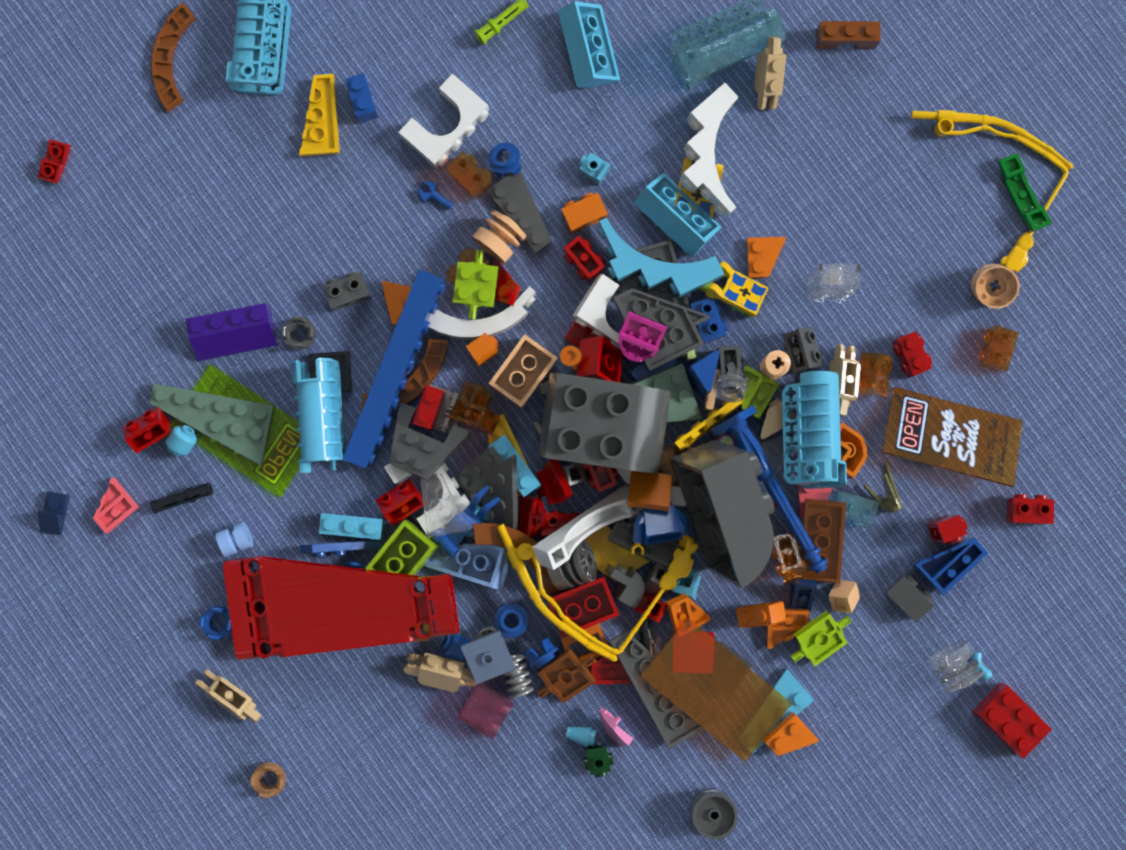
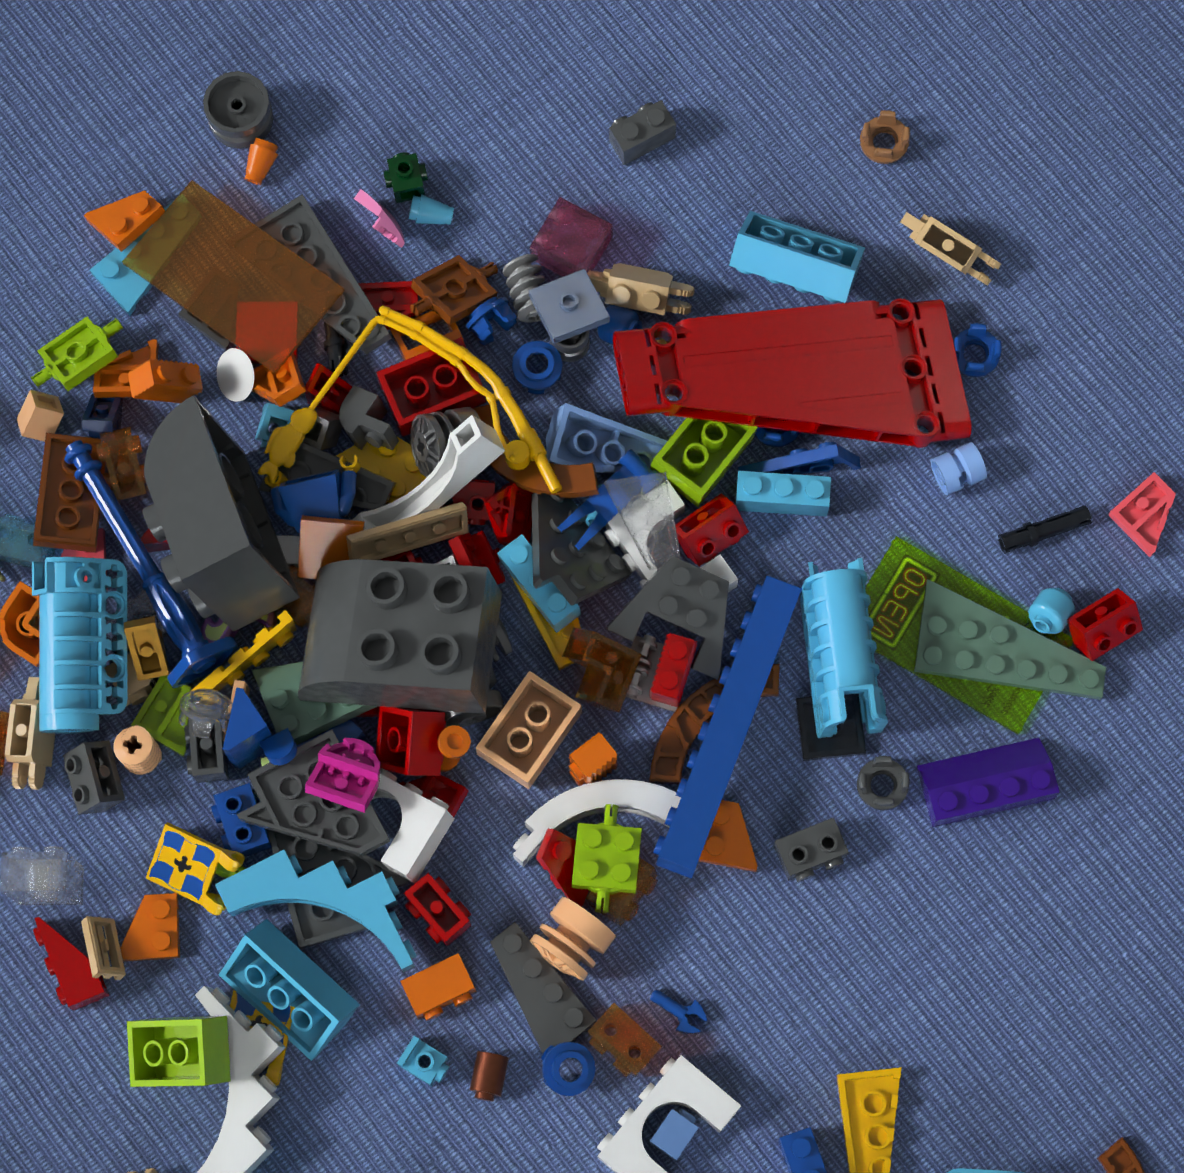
camera: 175 degrees left, 10 degrees down
(332, 690) = (796, 257): none -> medium azure brick
(435, 788) = (642, 131): none -> dark grey brick
(440, 119) = (675, 1133): none -> medium blue brick
(554, 158) = (488, 1075): none -> copper brick
(599, 498) = (409, 533): none -> tan tile
(682, 359) = (280, 747): none -> blue tile
(698, 776) = (260, 160): none -> orange cone
(714, 620) = (235, 374): none -> white sticker
(745, 172) = (178, 1051): none -> lime brick
(769, 428) = (146, 648): none -> pearl gold slope
(797, 242) = (98, 946): none -> tan tile
(811, 230) = (71, 968): none -> red slope

